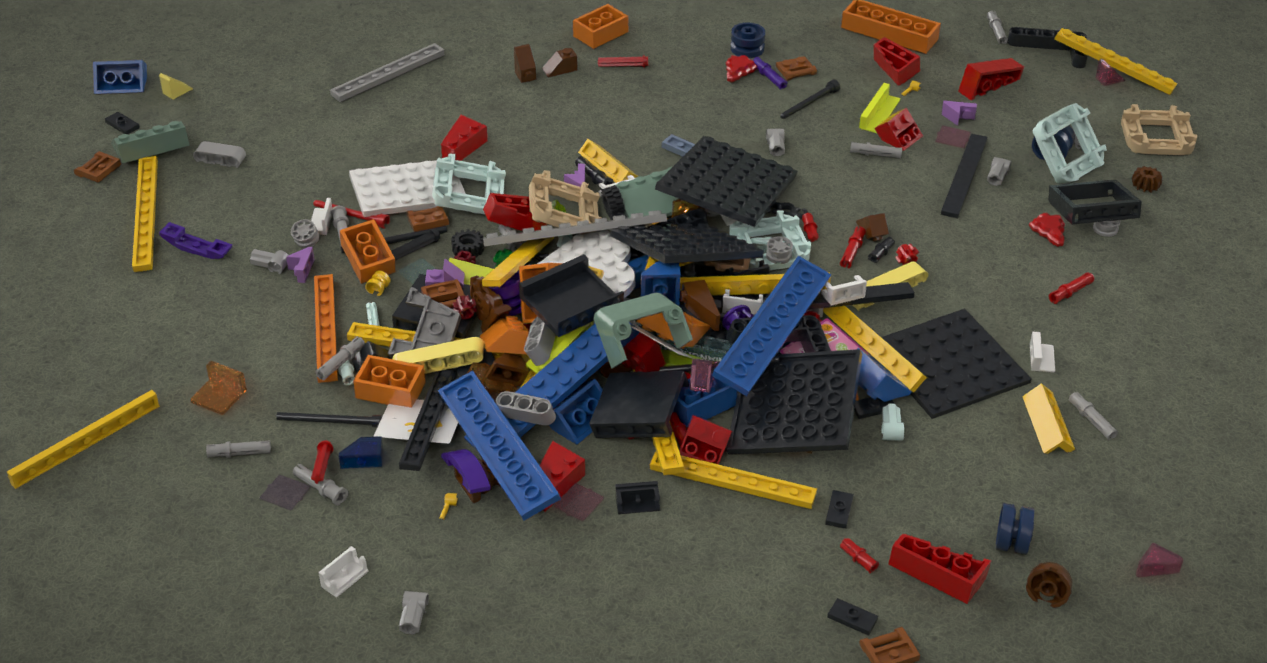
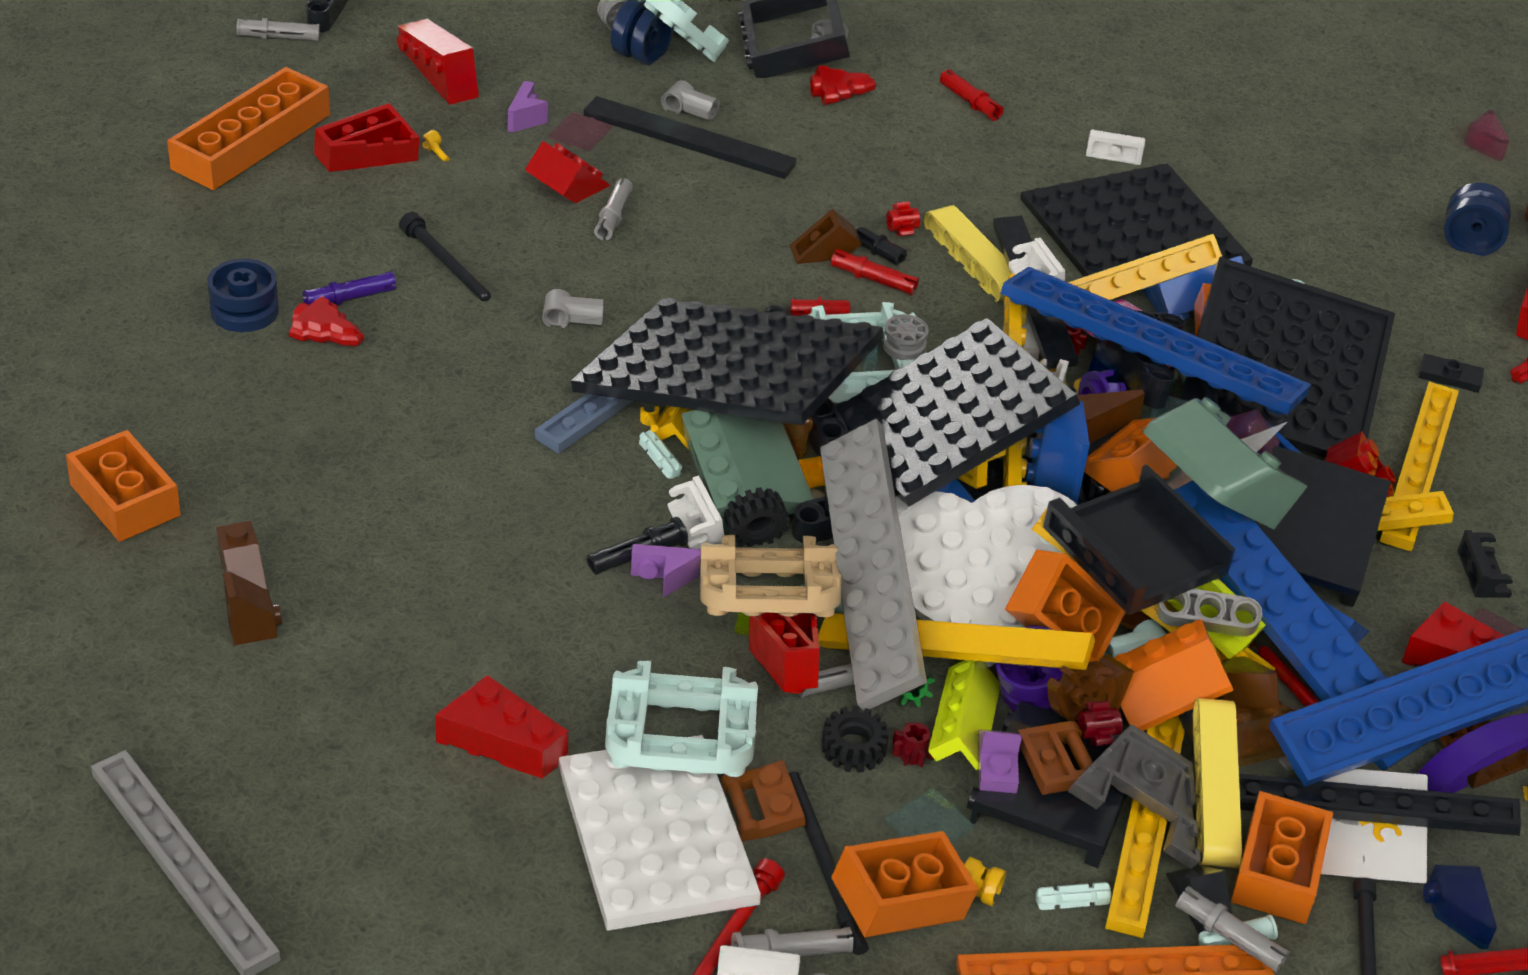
camera: 90 degrees left, 0 degrees up
(401, 251) = (825, 793): black axle -> none
(526, 408) = (1371, 646): light grey beam -> none
(605, 161) = (607, 526): yellow panel -> none
(623, 61) = (260, 446): red axle -> none
(796, 67) = (327, 262): dark orange plate -> none
(878, 109) = (493, 188): neon yellow panel -> none
(1047, 420) = (1248, 167): yellow panel -> none
(1087, 409) = (1225, 131): light grey pin -> none

